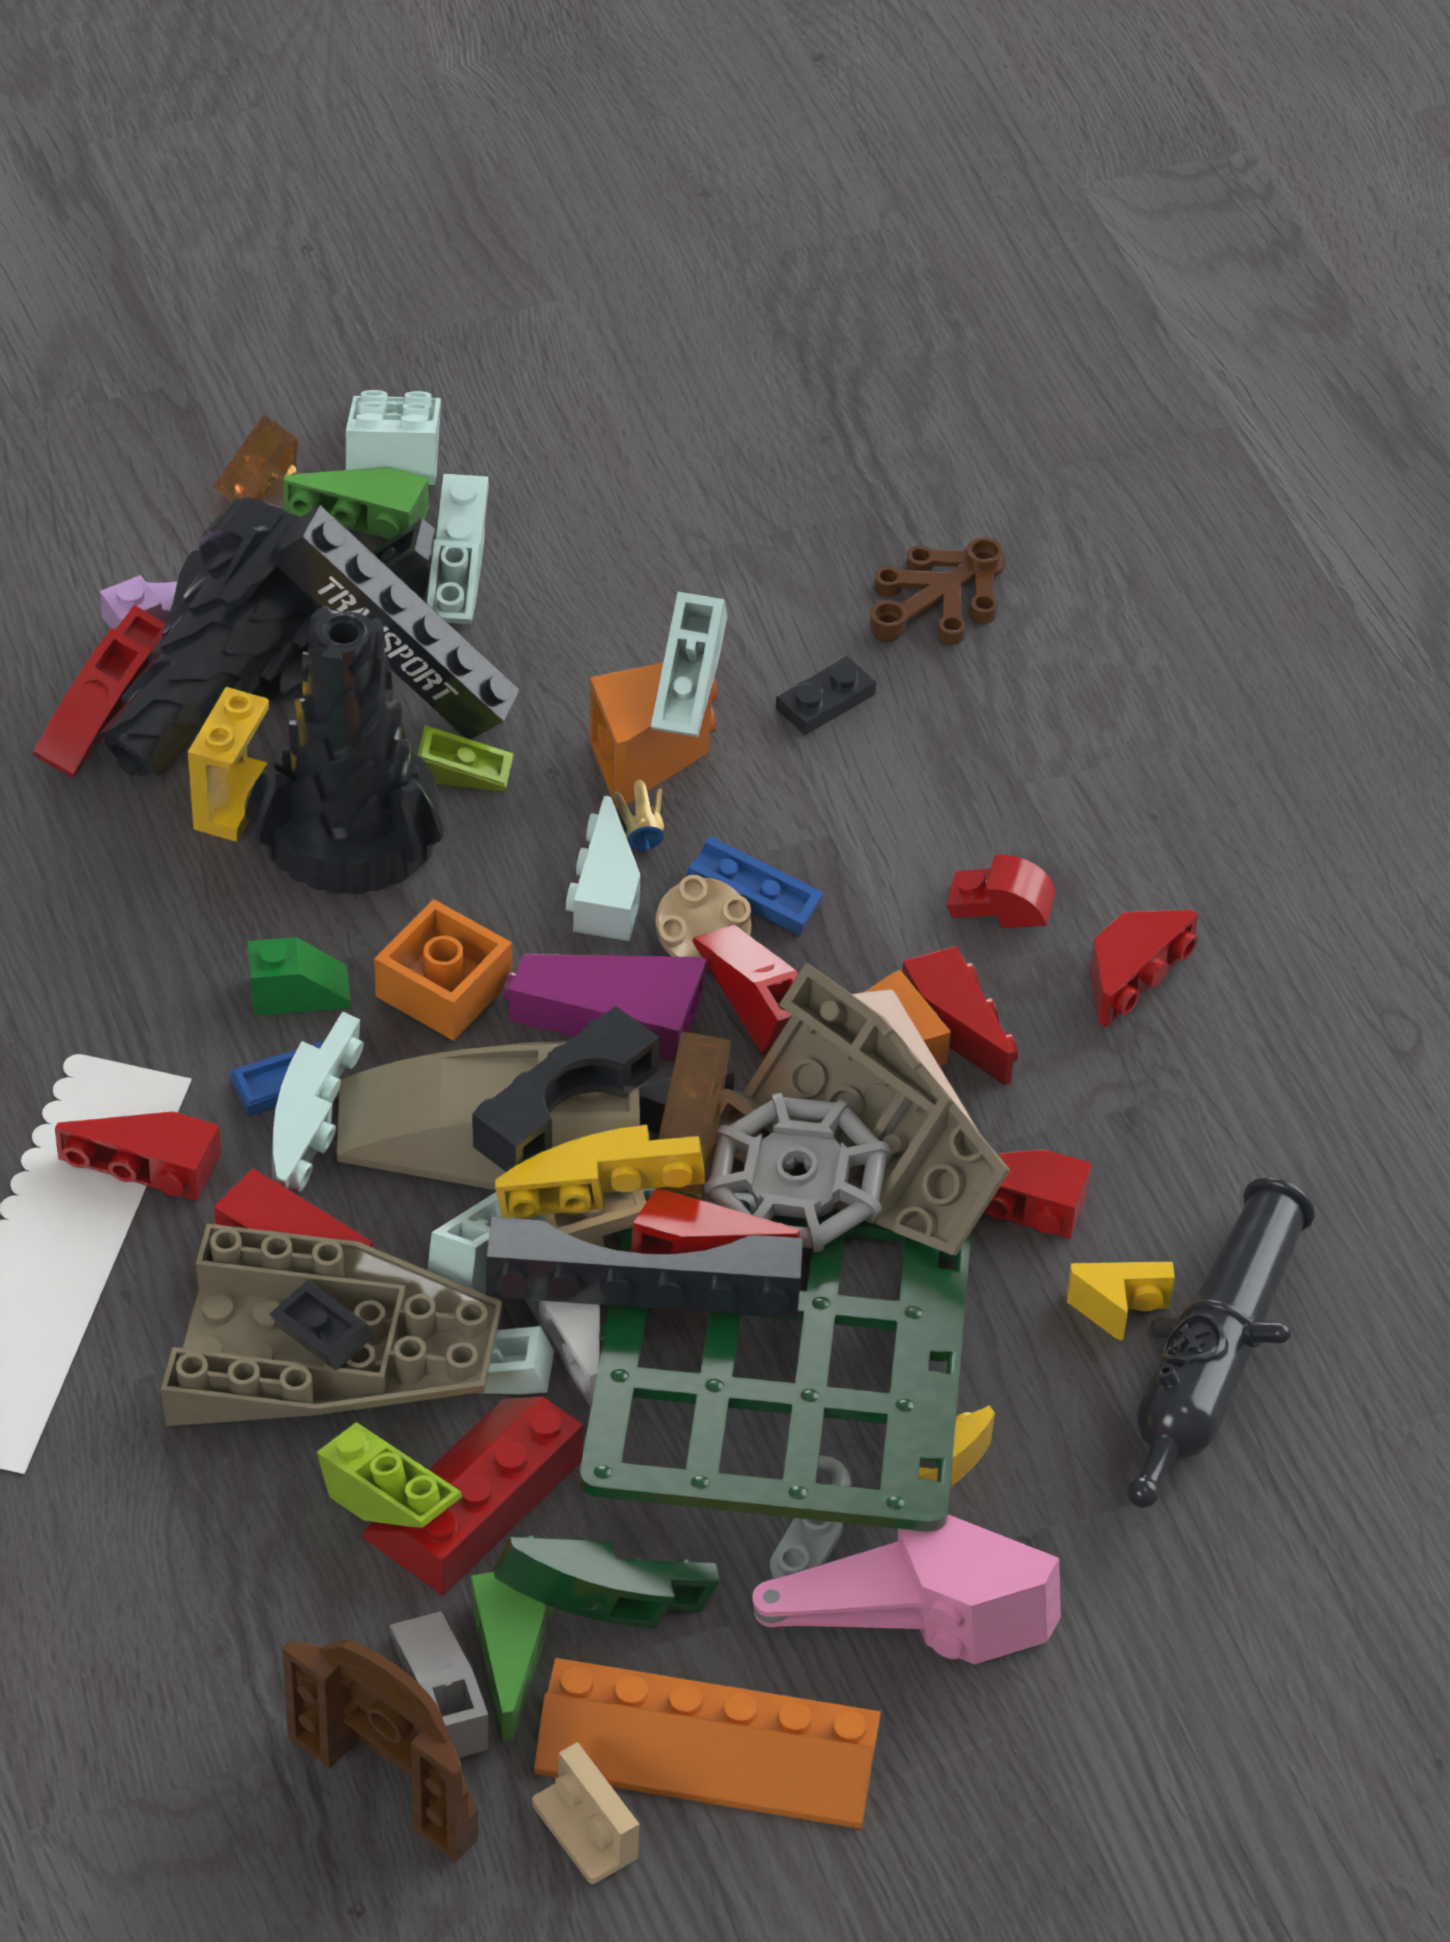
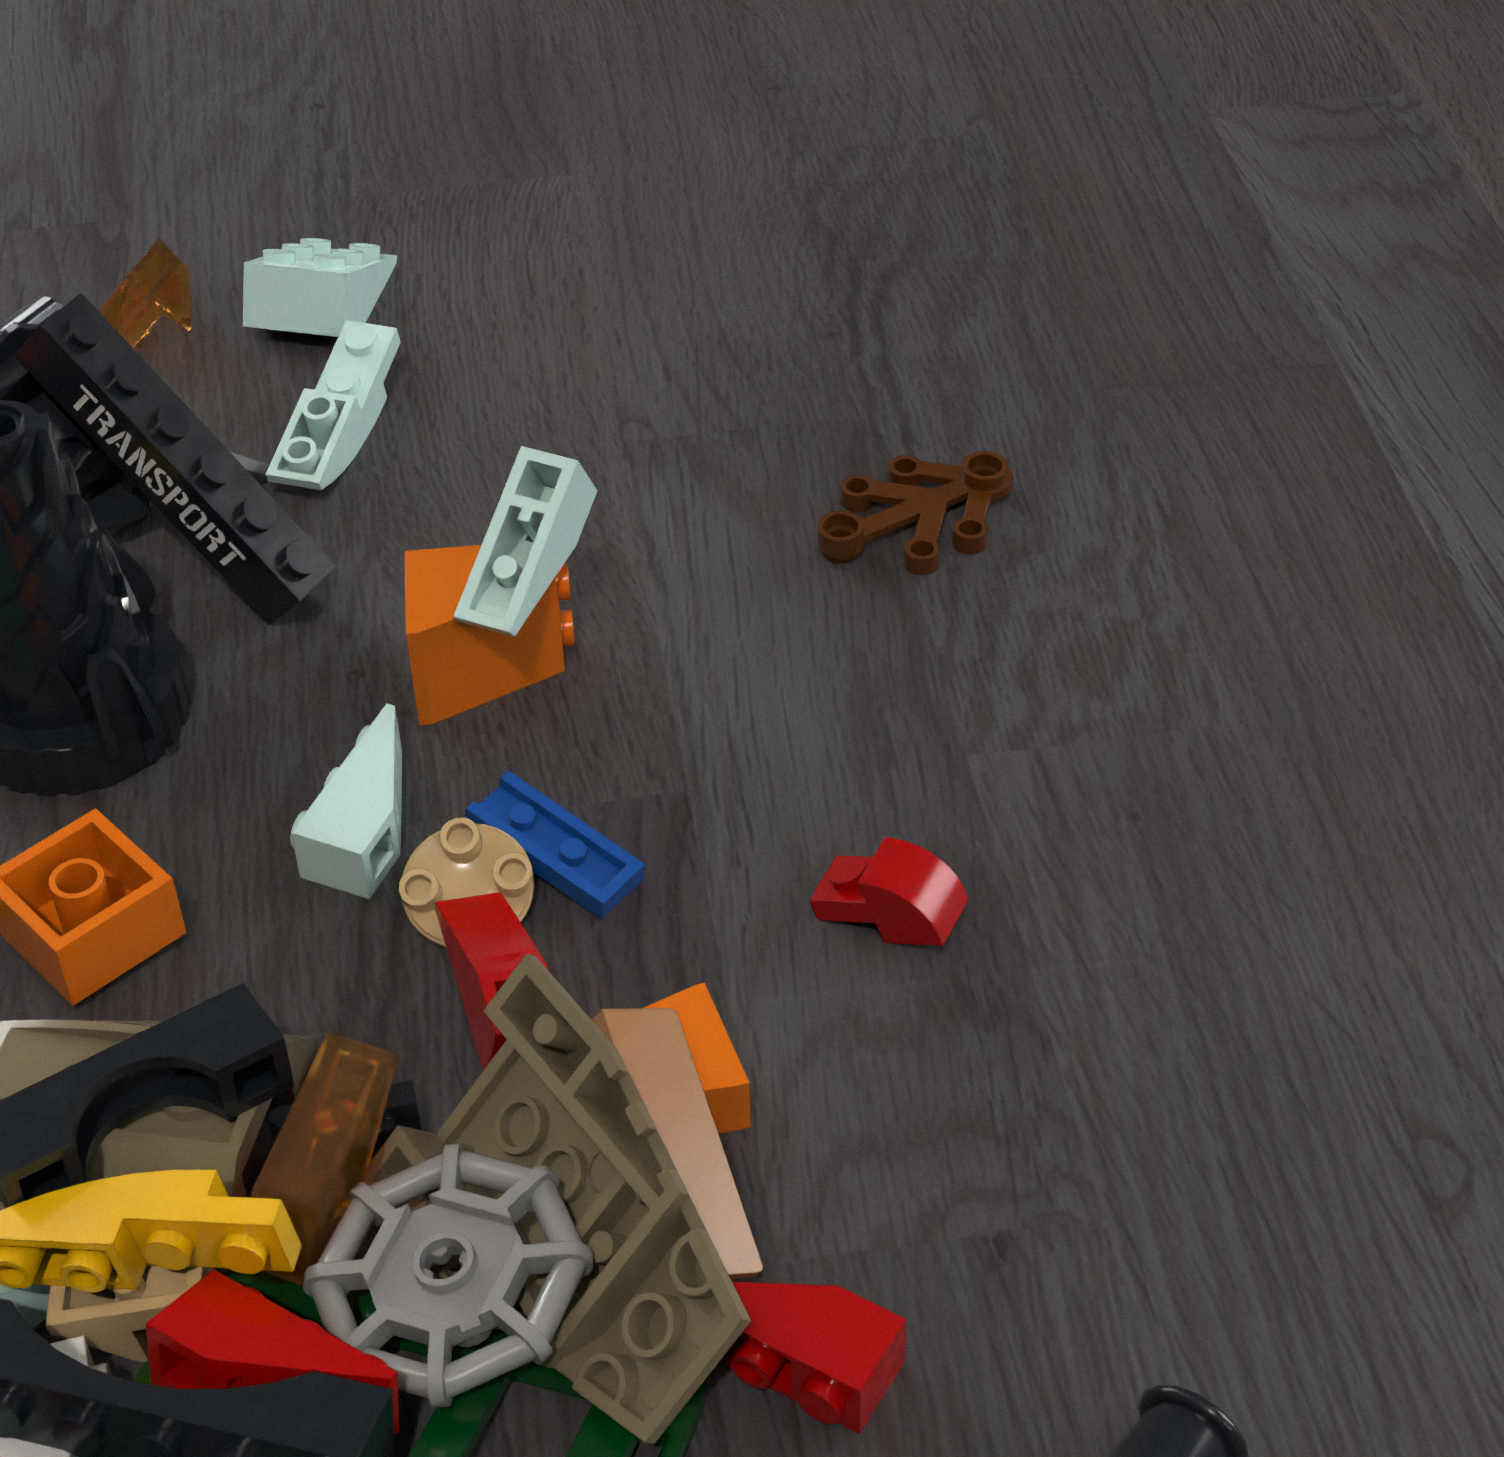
camera: 15 degrees right, 5 degrees down
(362, 500) = (252, 345): bright green slope -> none
(408, 554) = (261, 417): black slope -> none
(463, 761) = (240, 647): lime slope -> none
(572, 990) = (304, 967): magenta slope -> none
(647, 826) = (435, 752): pearl gold piece -> none
(825, 695) = (735, 617): black plate -> none
(955, 996) = (787, 1069): red slope -> none
(1136, 956) = (1060, 1005): red slope -> none

